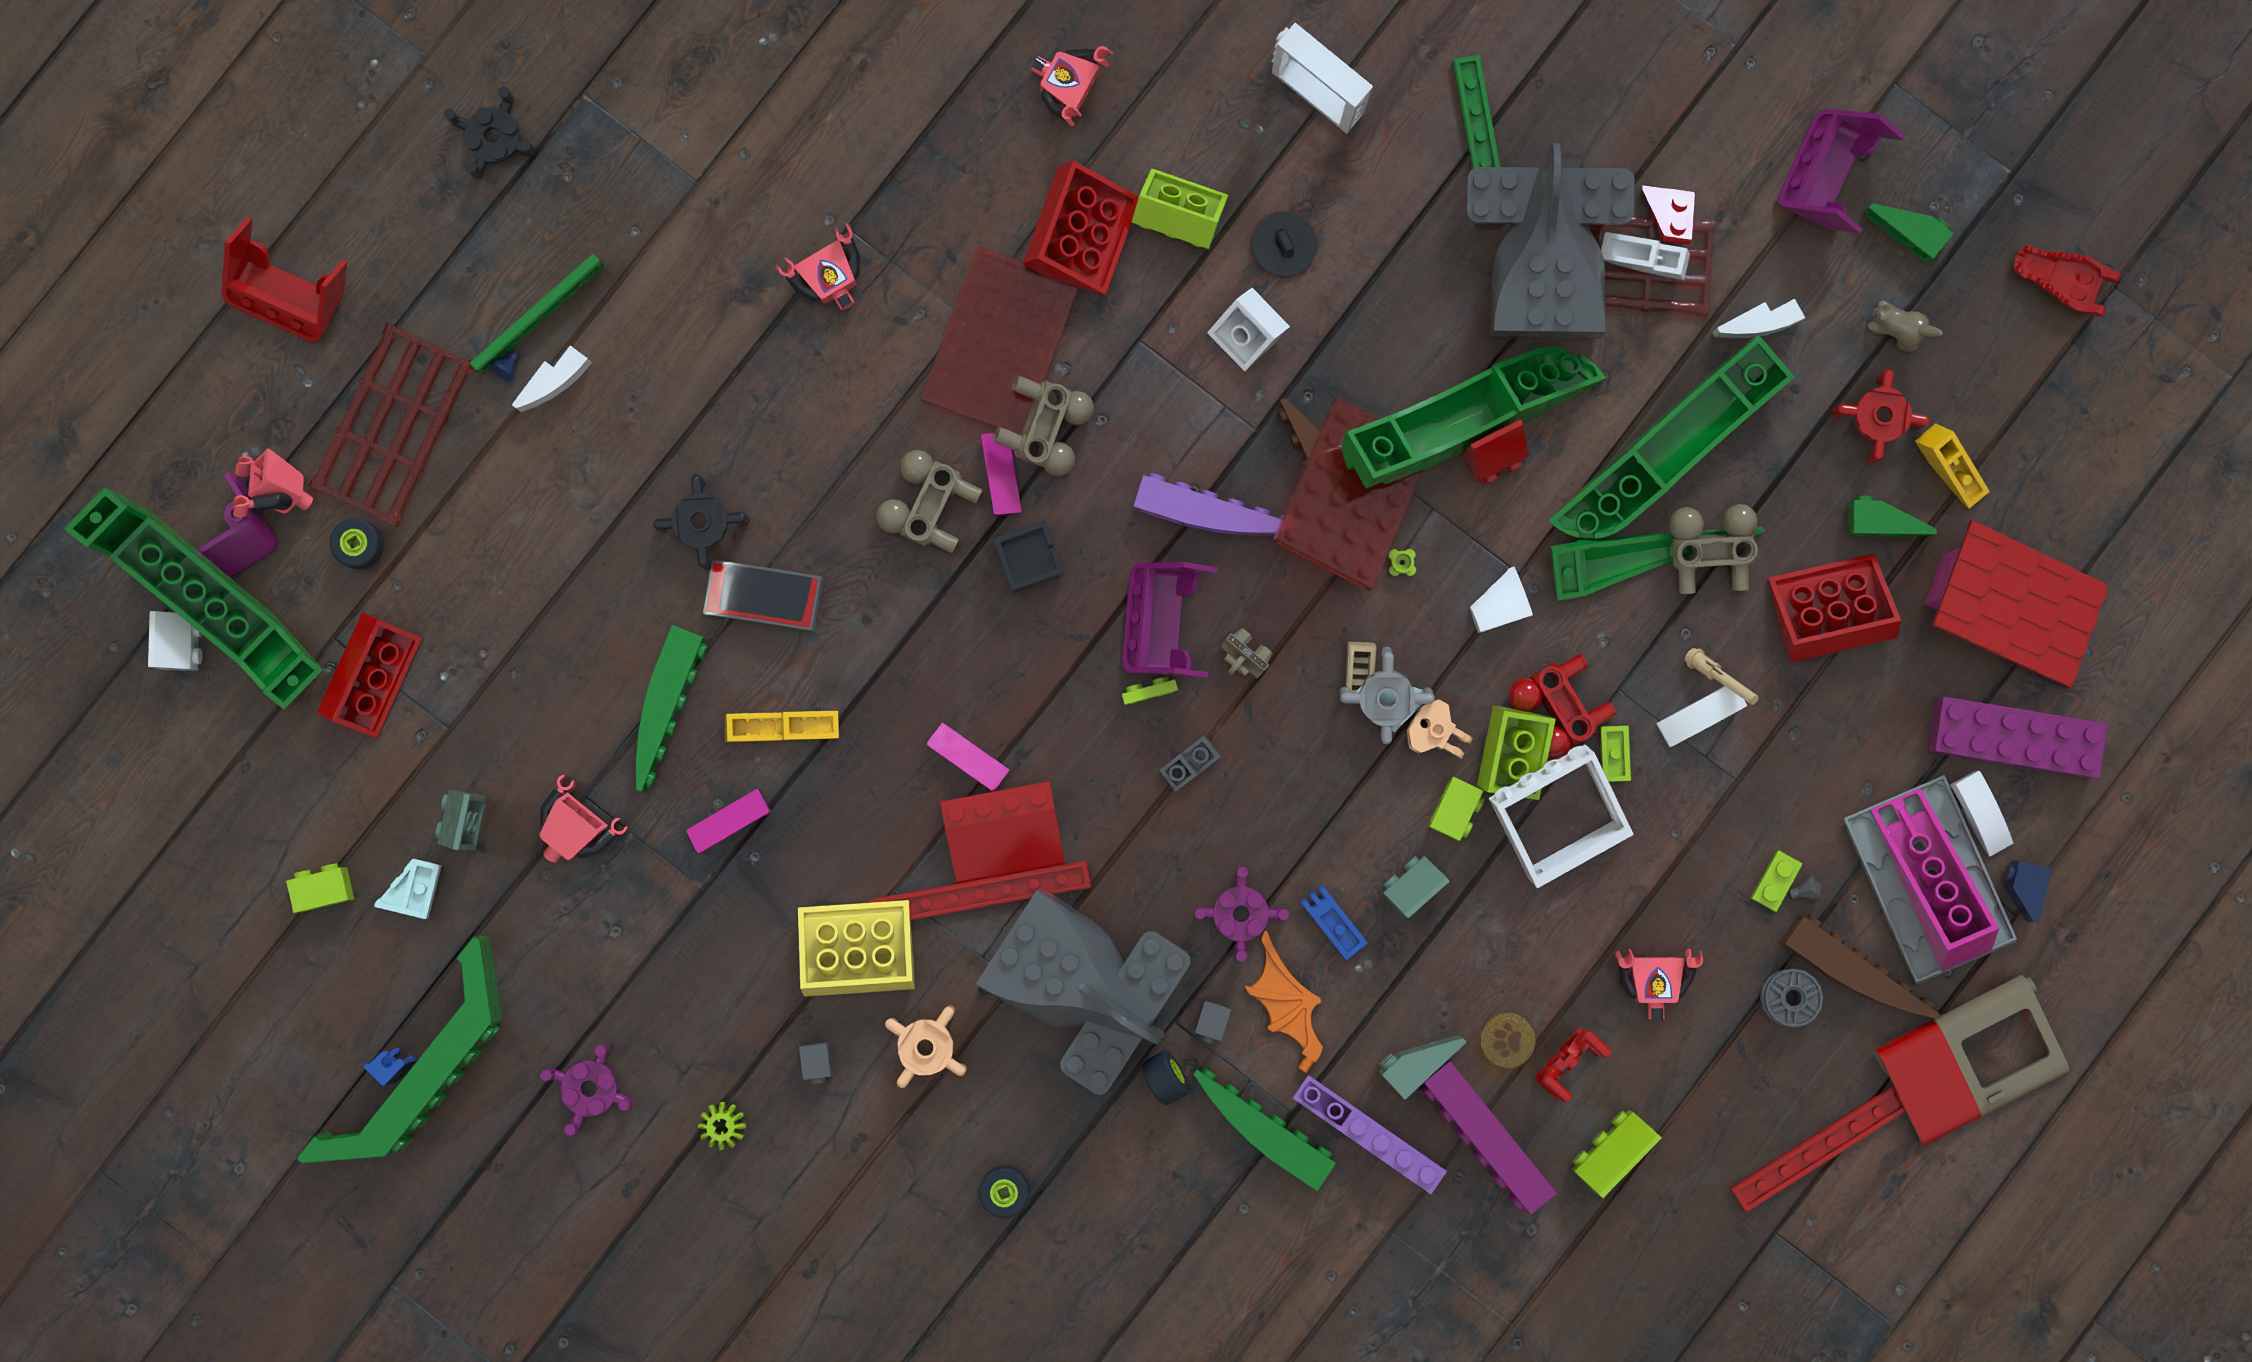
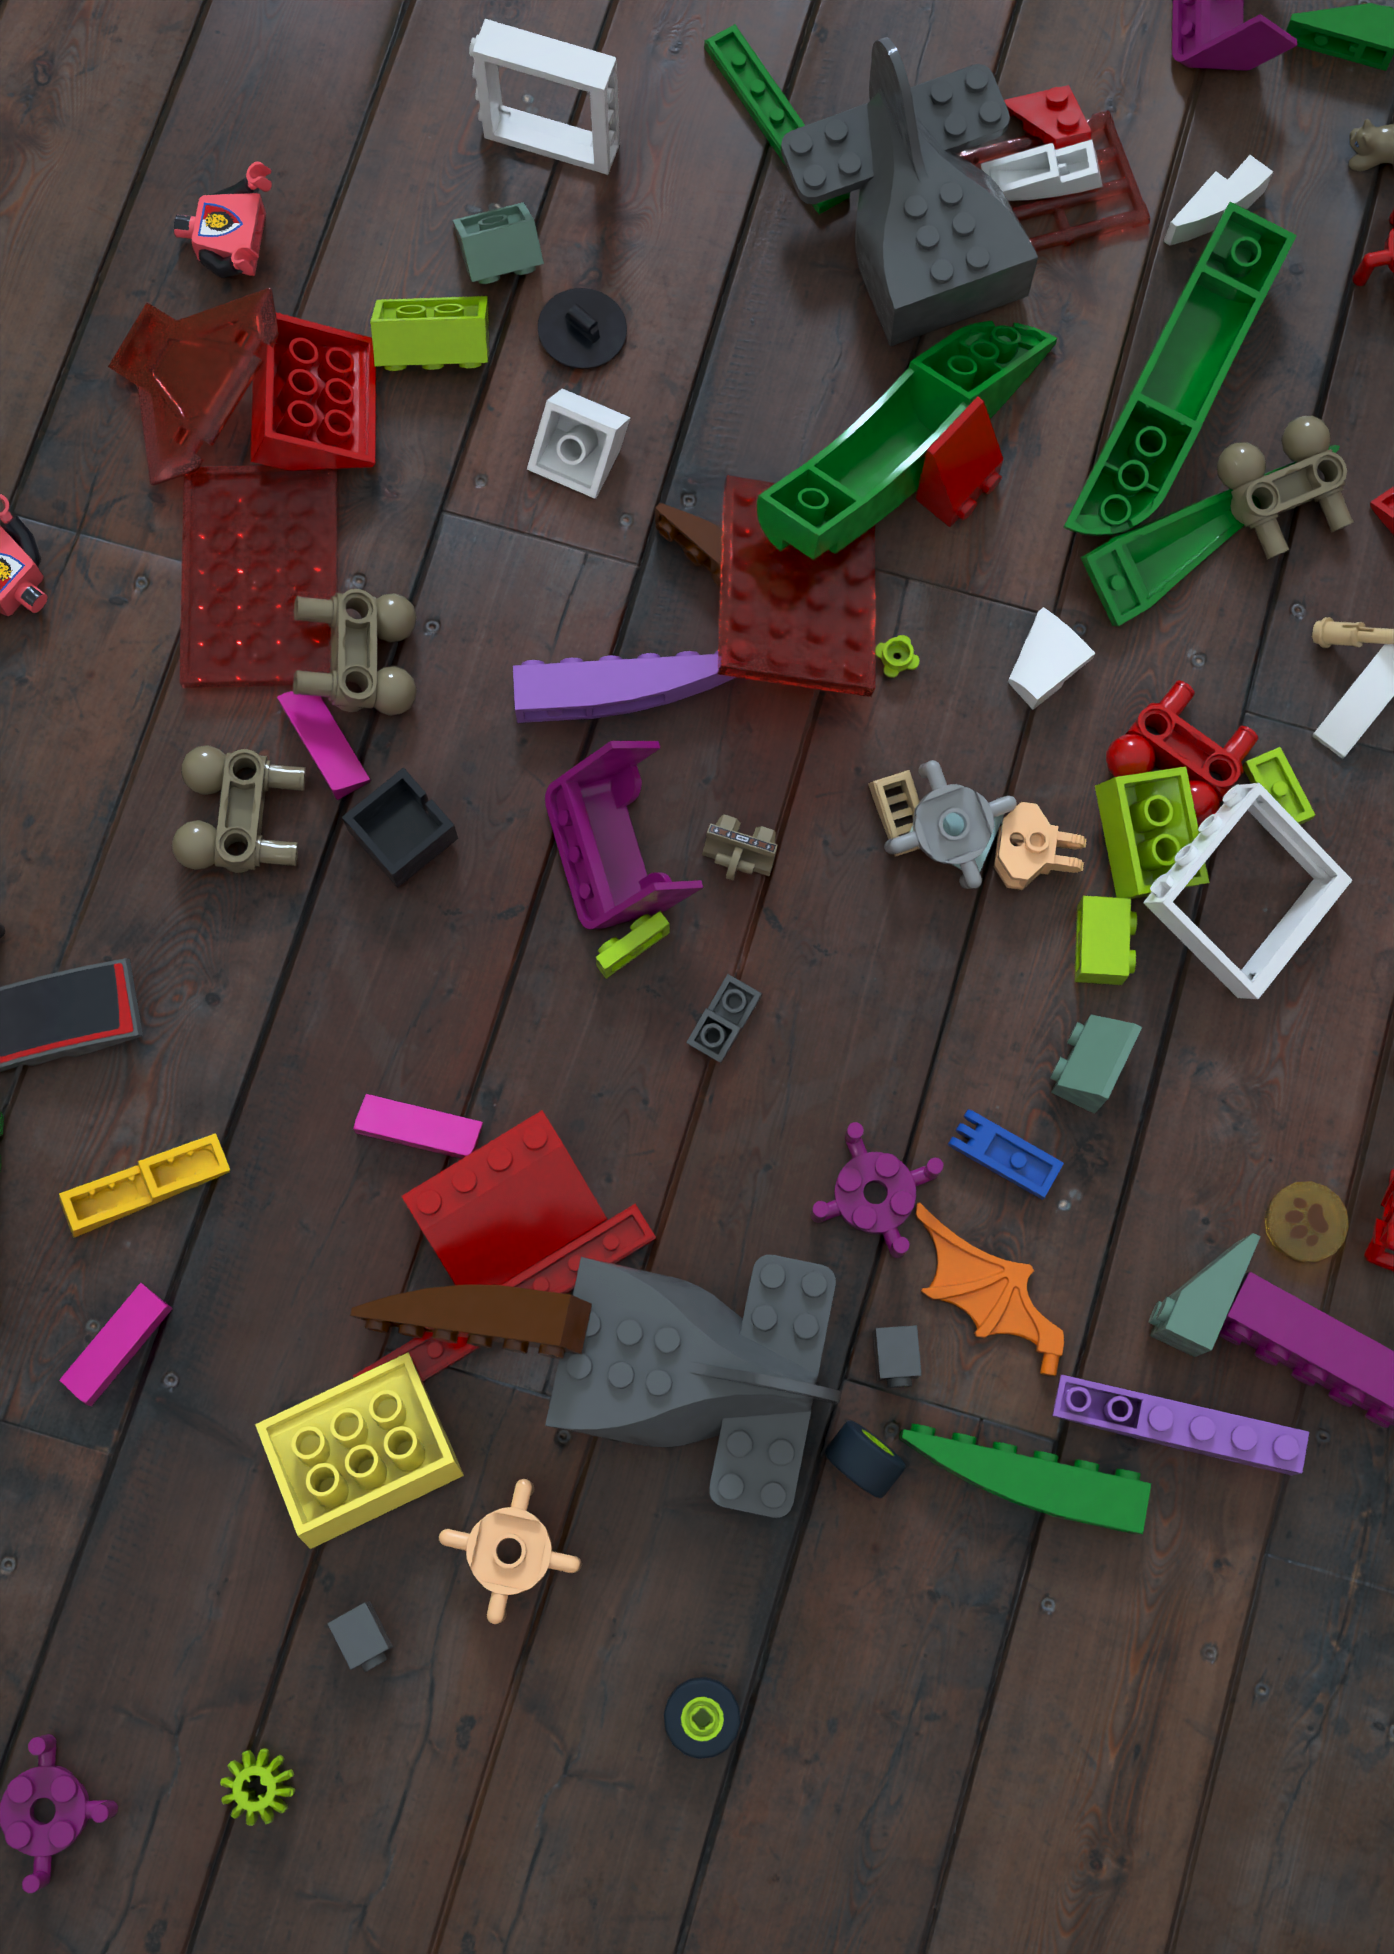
camera: 20 degrees left, 10 degrees down
(964, 902) = (484, 1316): none -> reddish brown slope
(1006, 184) = (193, 375): none -> clear red plate
(1250, 159) = (499, 243): none -> sand green slope

